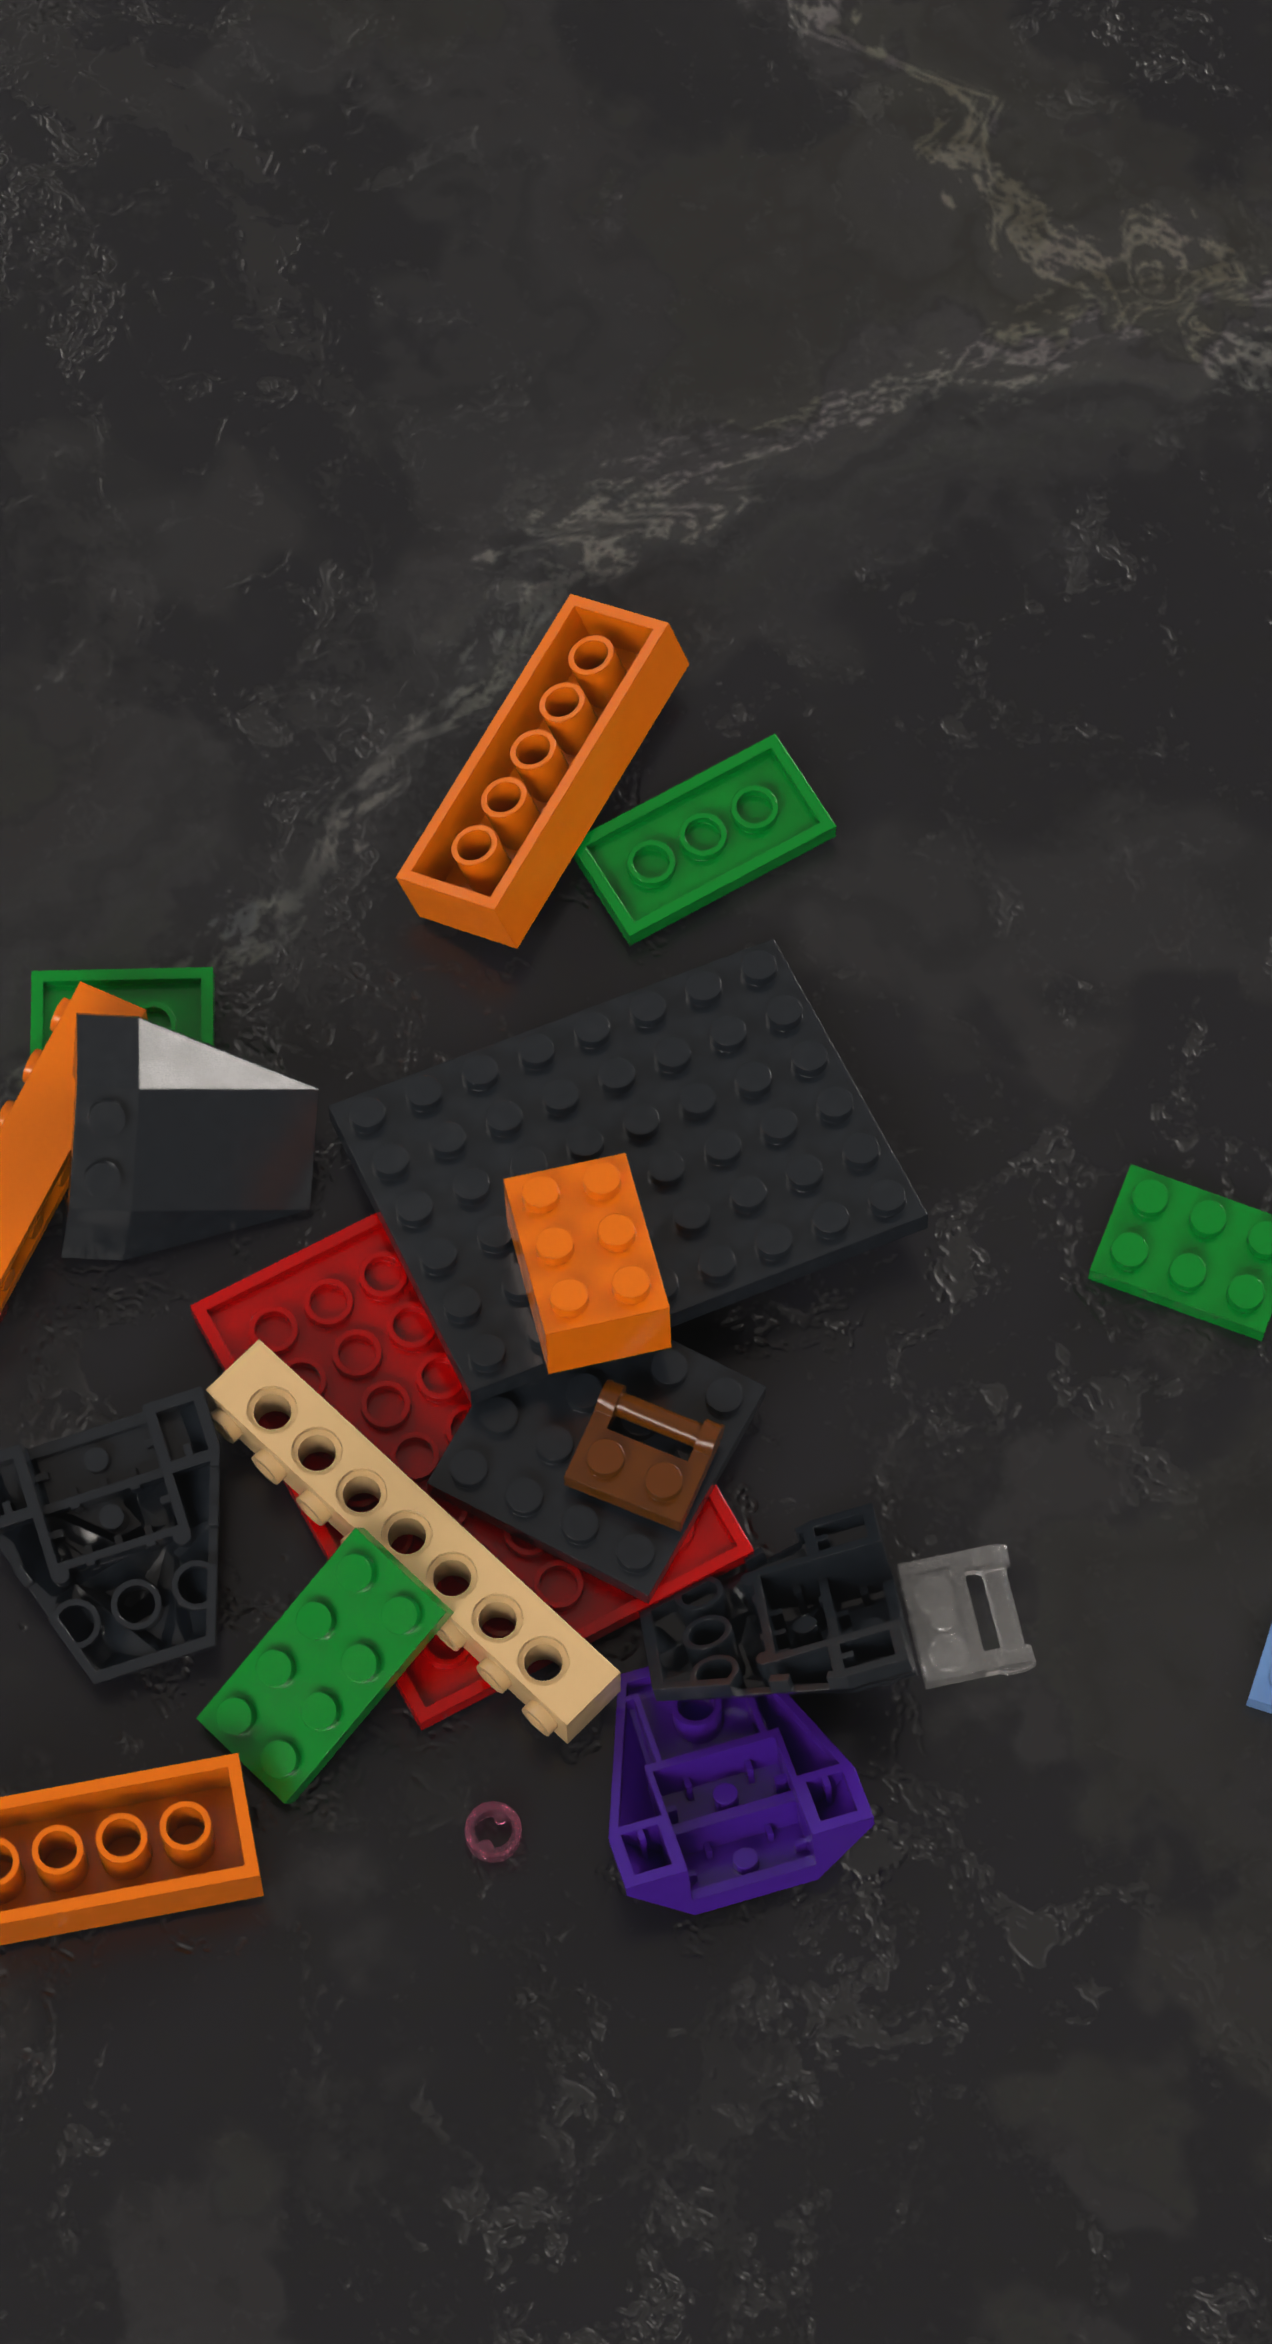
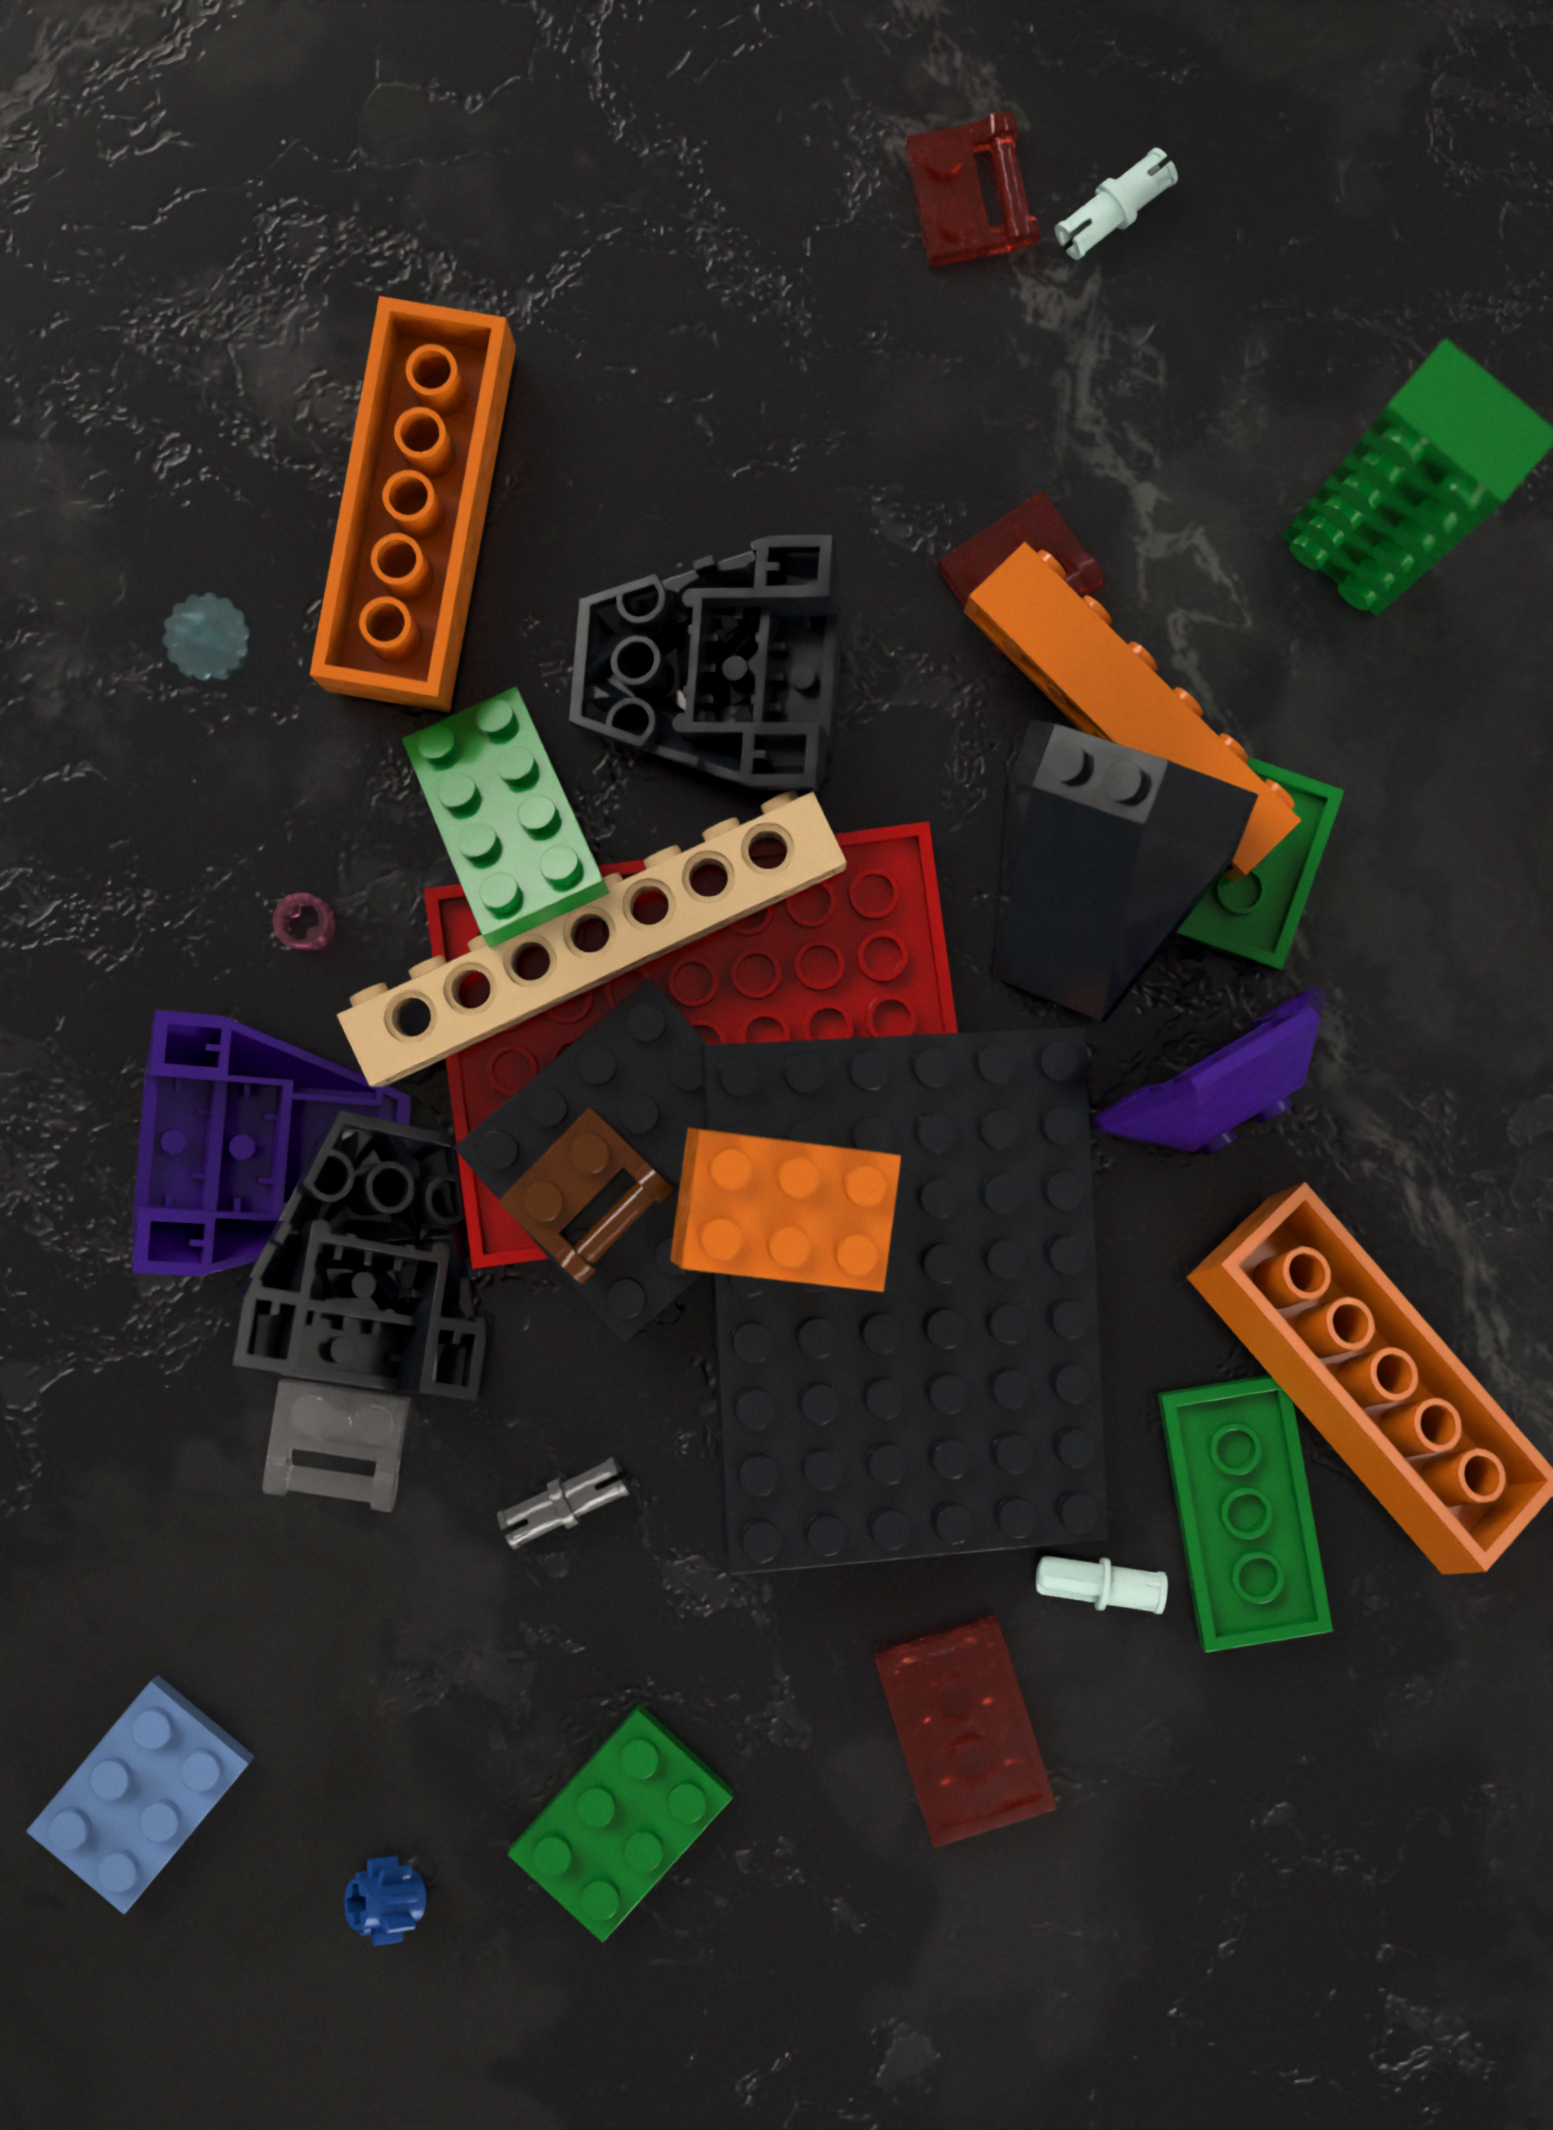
camera: 115 degrees right, 20 degrees up
(251, 2031) = (206, 636): none -> clear light blue piece
(274, 928) = (1227, 1087): none -> dark purple wedge
(814, 930) = (1102, 1584): none -> light aqua axle
(934, 1401) = (563, 1503): none -> dark grey pin
(989, 996) = (965, 1731): none -> clear red plate

